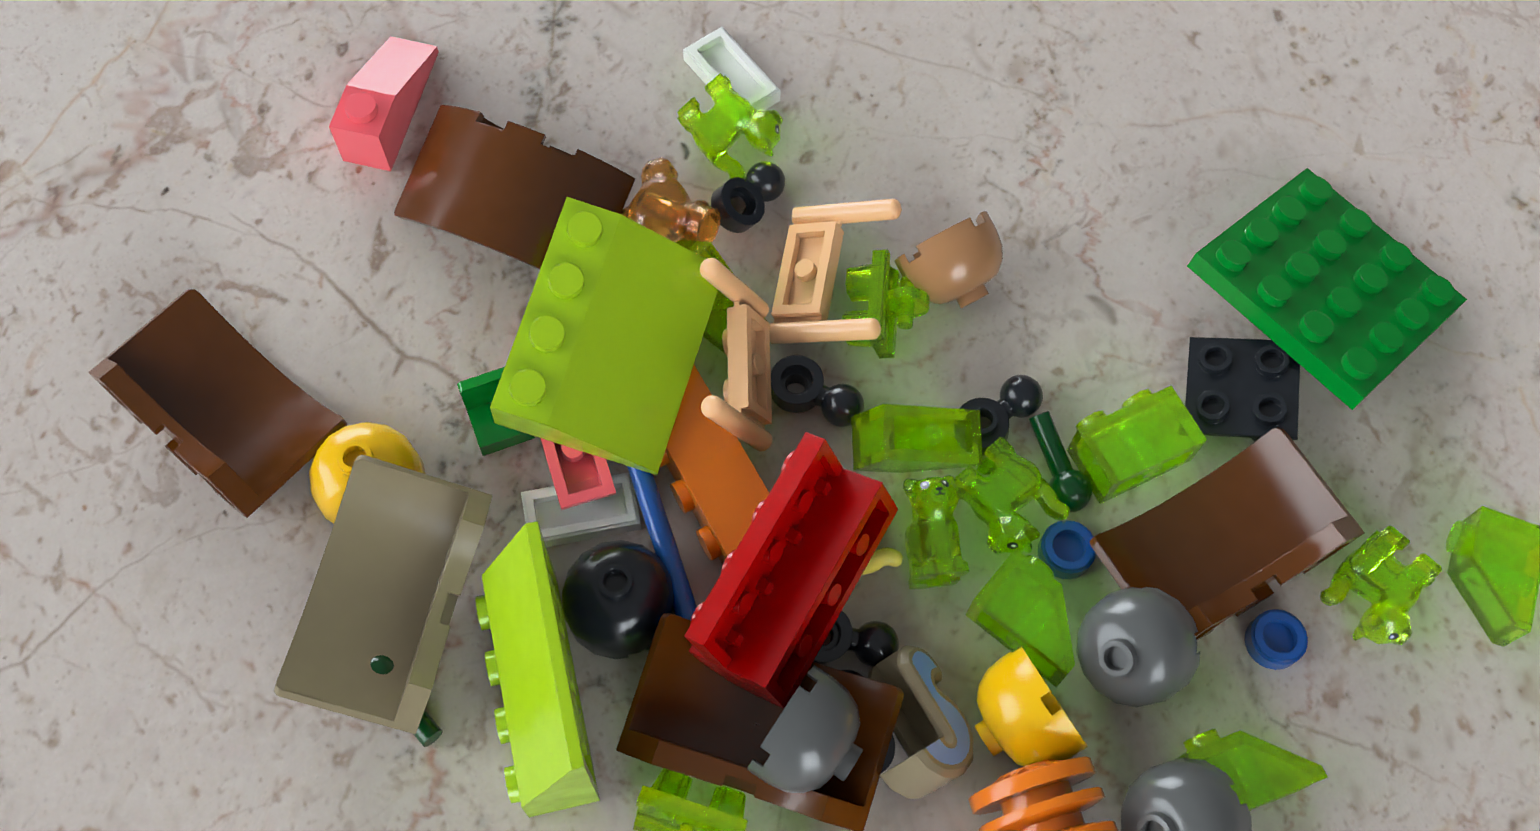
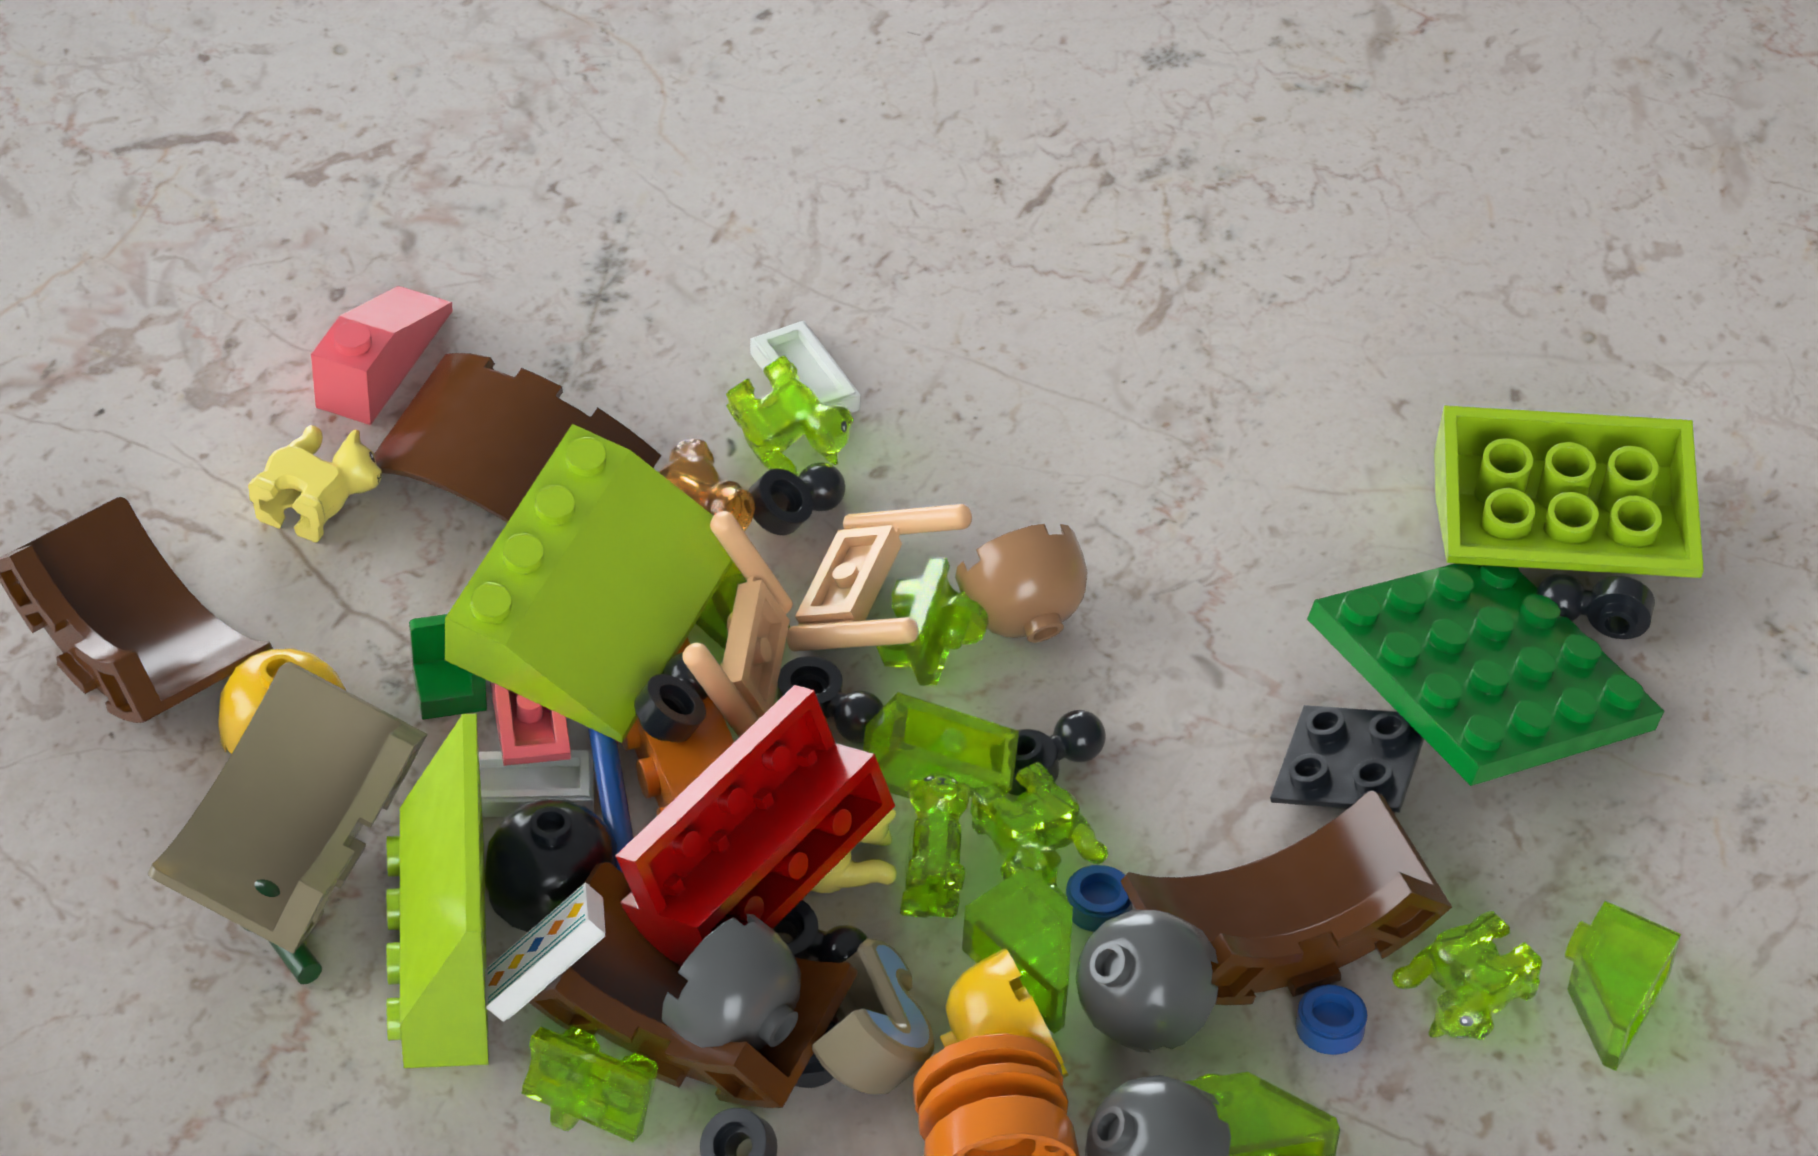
camera: 10 degrees right, 20 degrees down
(351, 244) = (310, 484): none -> light yellow animal
(636, 724) = (544, 952): none -> white tile
(695, 442) = (671, 703): none -> black plate
(1070, 485) = (1119, 834): dark green bar -> none
(1135, 442) = (1205, 799): clear neon green brick -> none
(1358, 114) = (1568, 491): none -> lime slope
(1407, 209) = (1614, 607): none -> black plate

